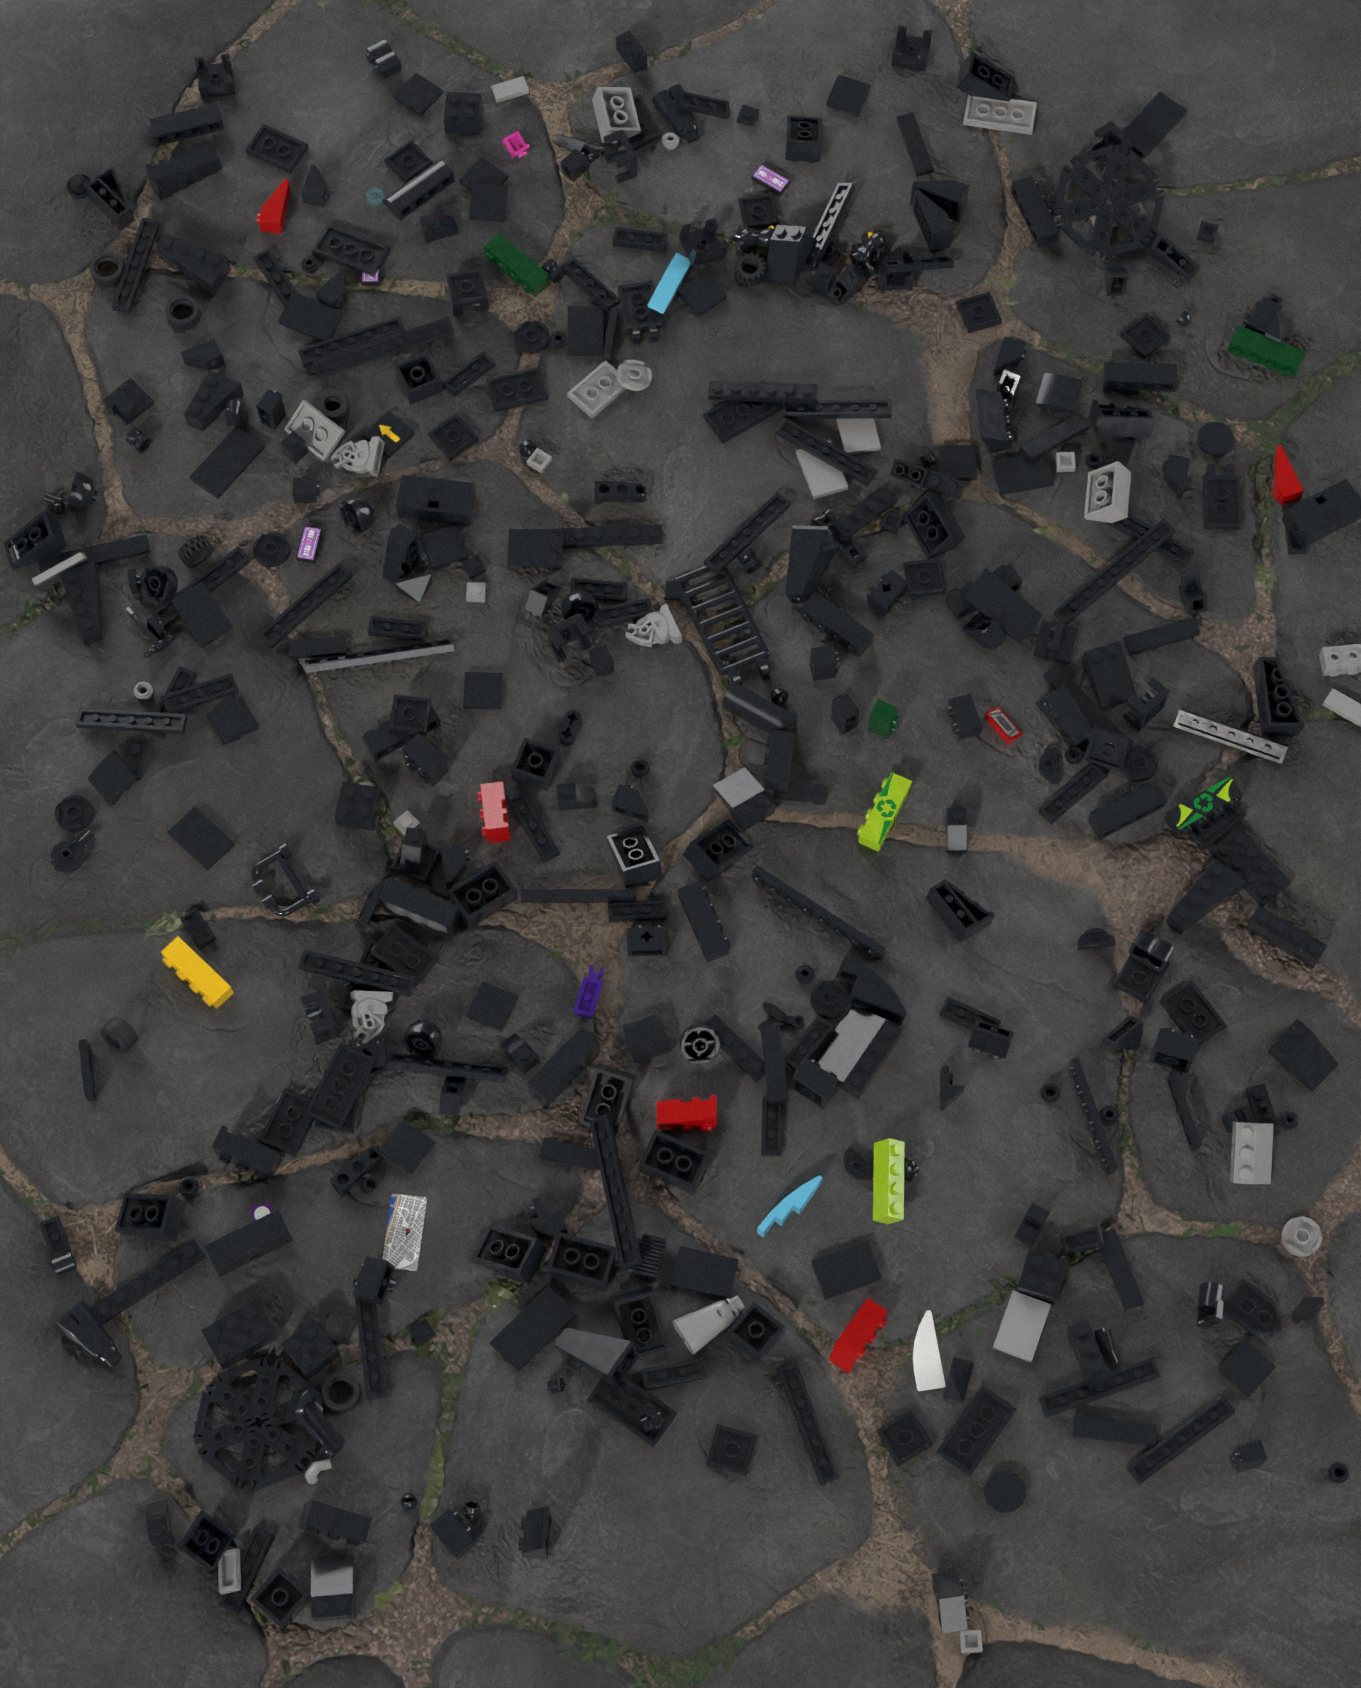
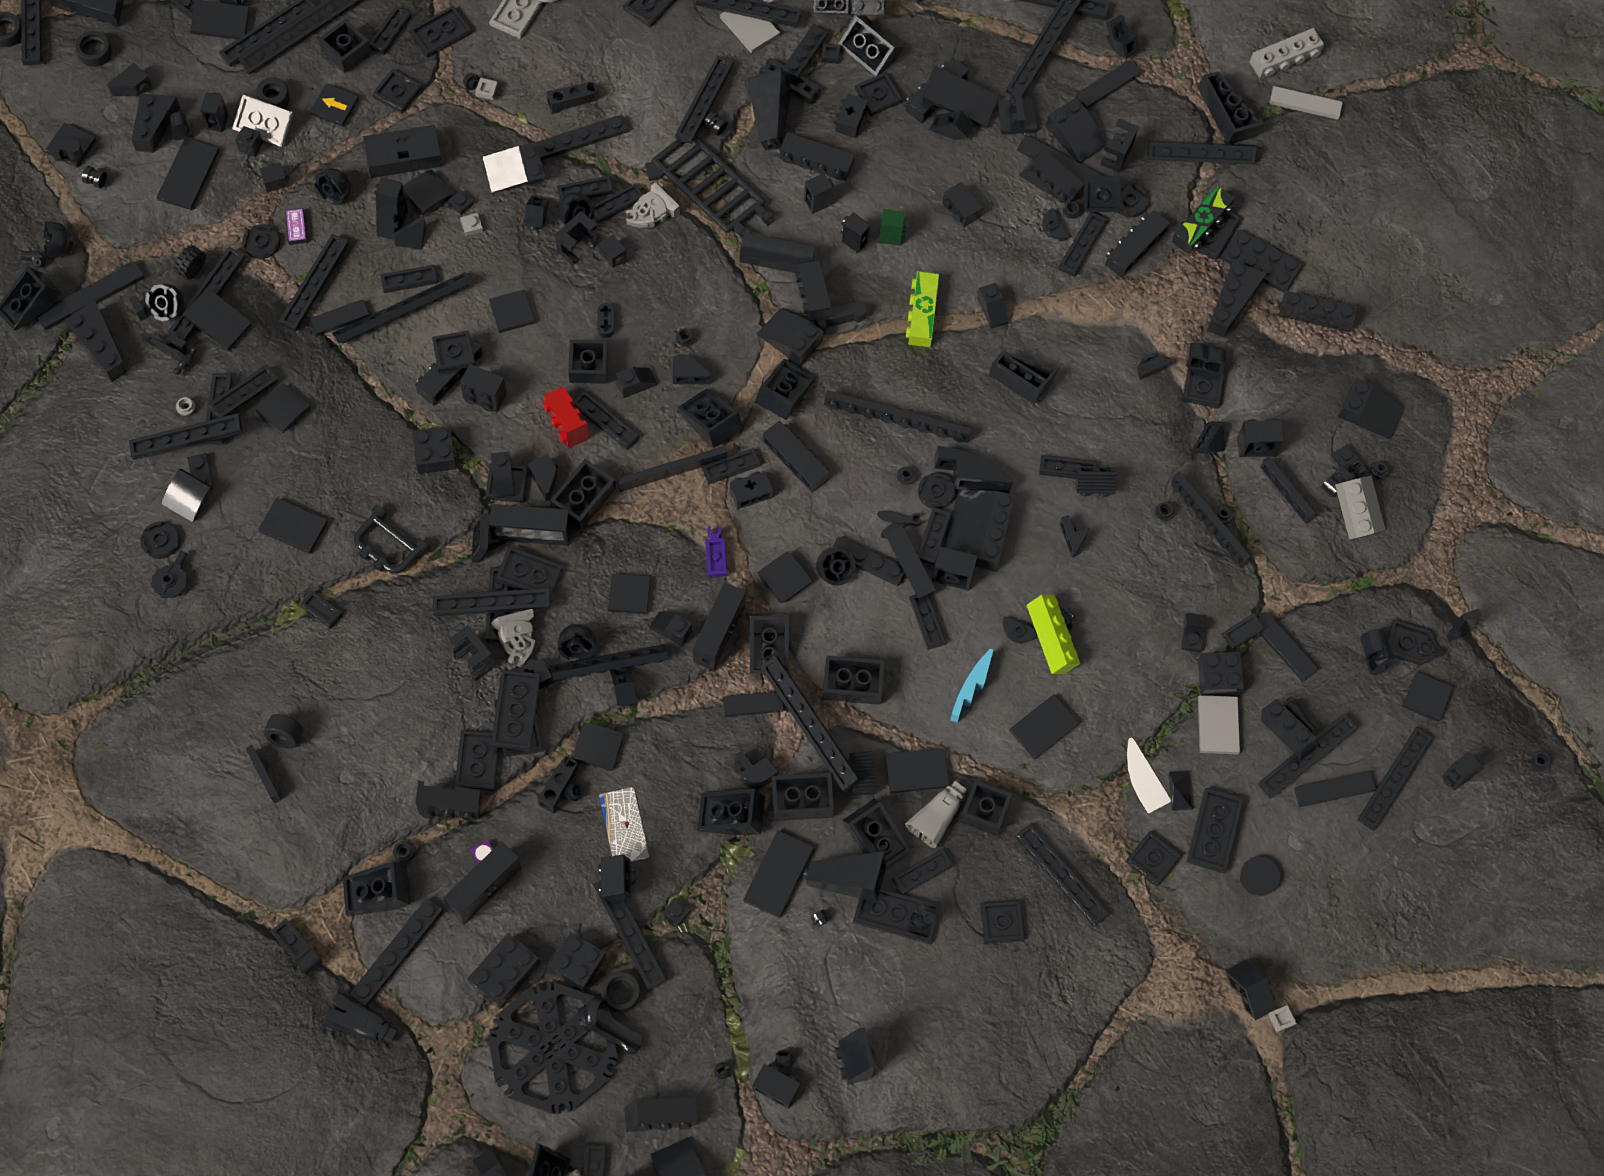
camera: 25 degrees left, 0 degrees up
(59, 568) = (62, 315): light grey tile -> none
(196, 972) = (336, 649): yellow brick -> none
(315, 1468) = (622, 1071): light grey arm -> none
(363, 456) = (316, 131): light grey piece -> none
(406, 820) = (484, 451): light grey plate -> none
(687, 1115) = (848, 634): red wedge -> none
(779, 696) = (789, 234): black plate -> none
(858, 1335) = (1078, 780): red wedge -> none
(1003, 725) = (998, 203): slope -> none
(1193, 1012) = (1260, 401): black tile -> none
(1301, 1236) = (1429, 566): light grey tile -> none

